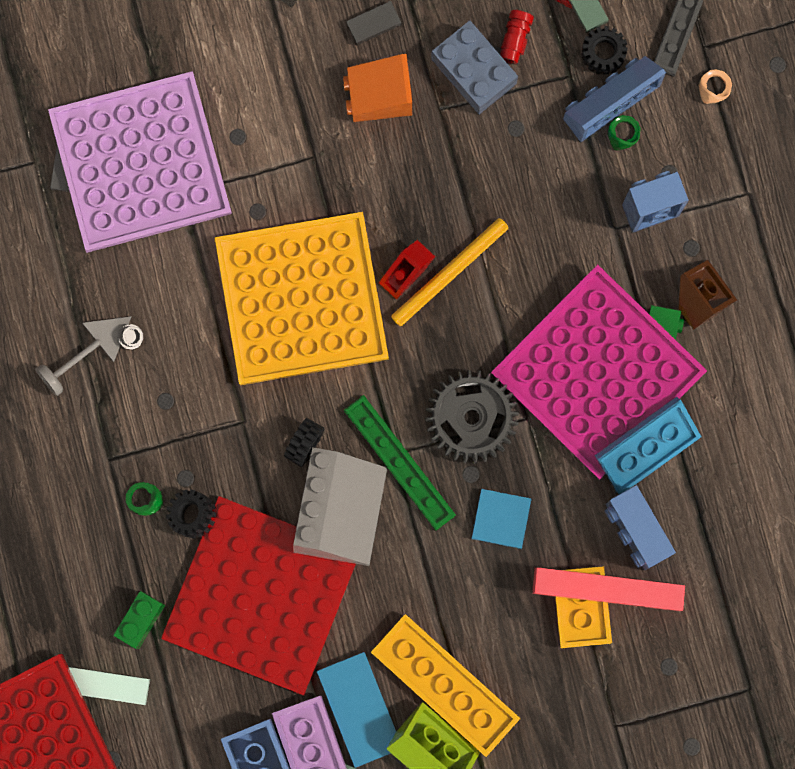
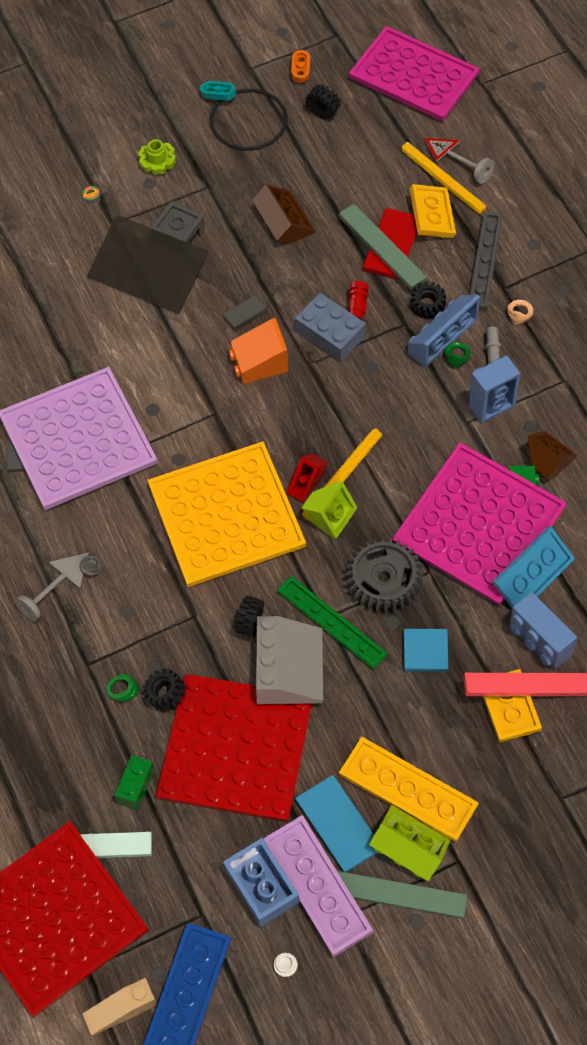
camera: 10 degrees left, 20 degrees down
(425, 320) = (330, 508): none -> lime slope
(669, 132) = (493, 346): none -> light grey pin

